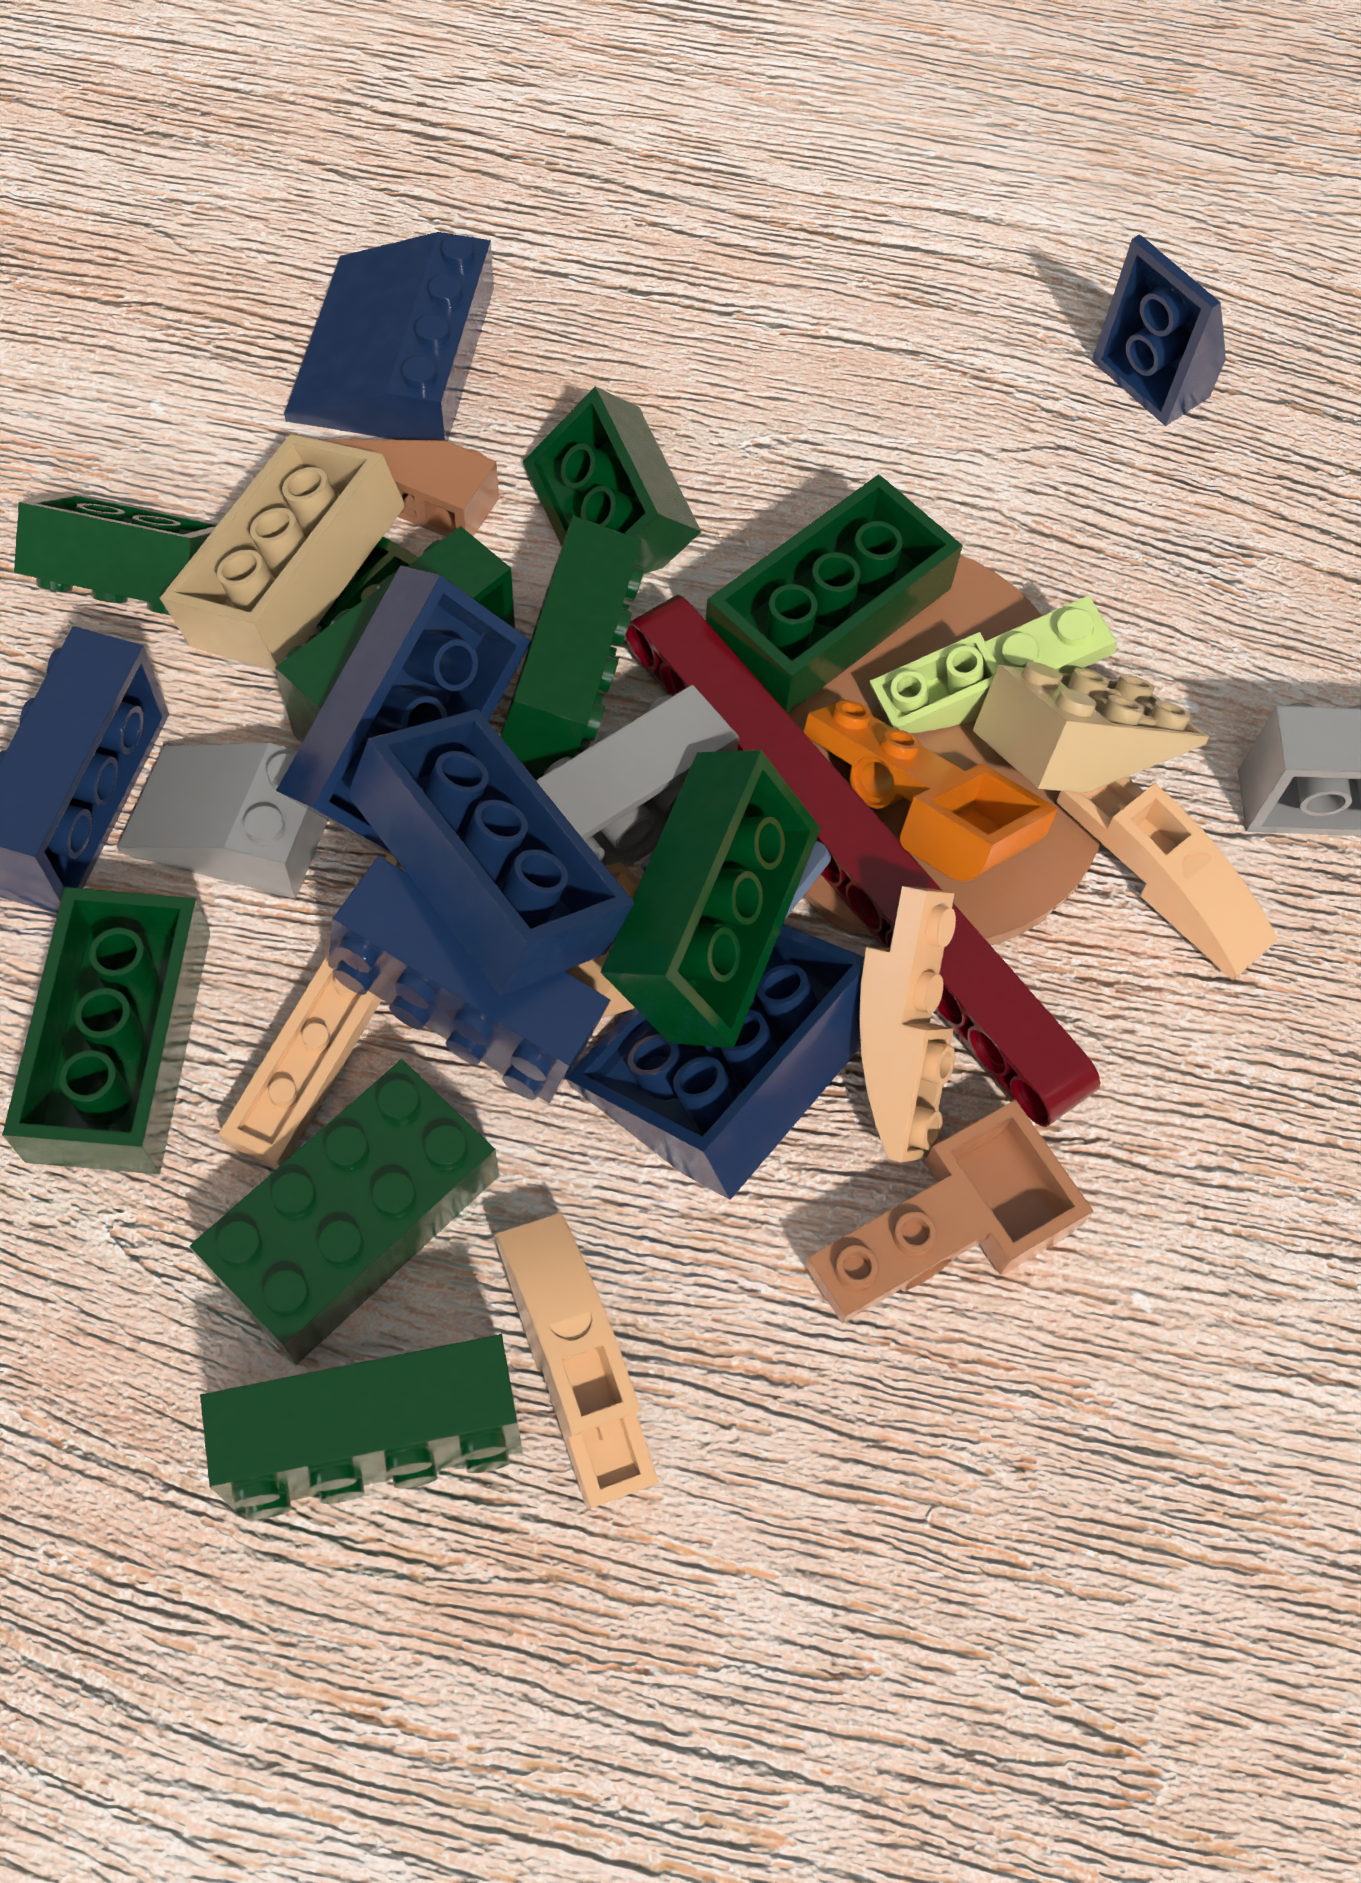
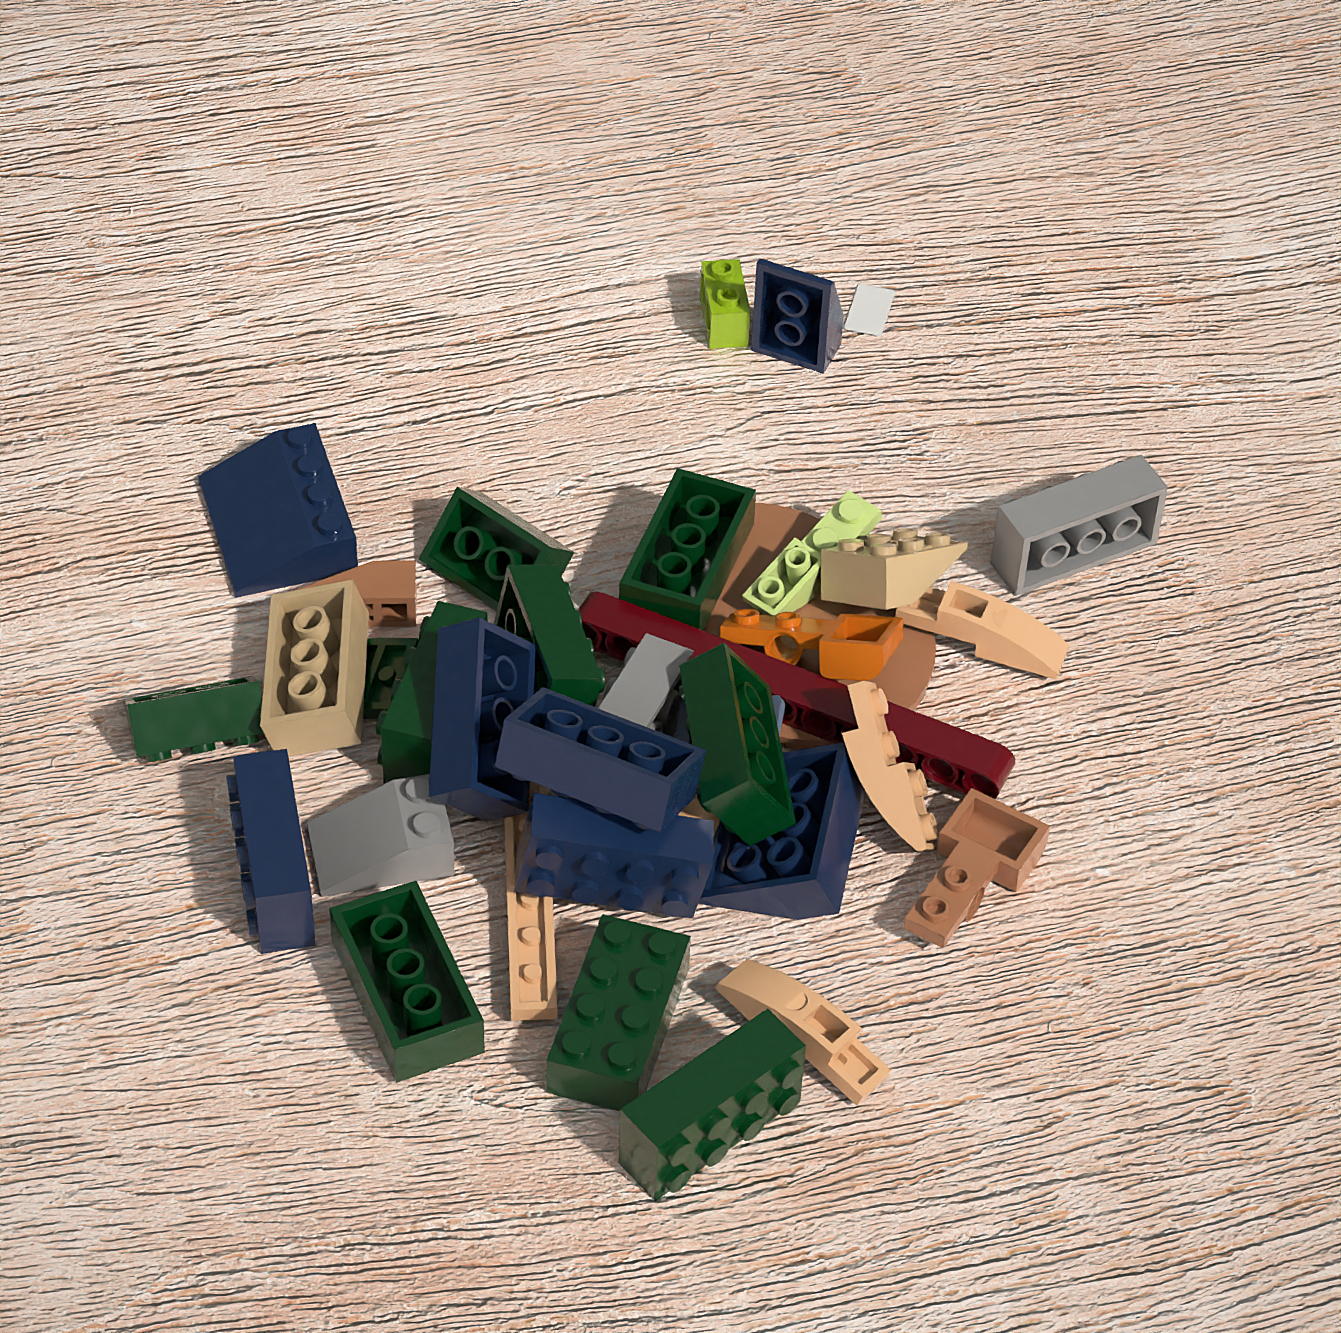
camera: 25 degrees left, 15 degrees down
(1086, 287) = (724, 303): none -> lime brick
(1272, 367) = (869, 309): none -> white sticker

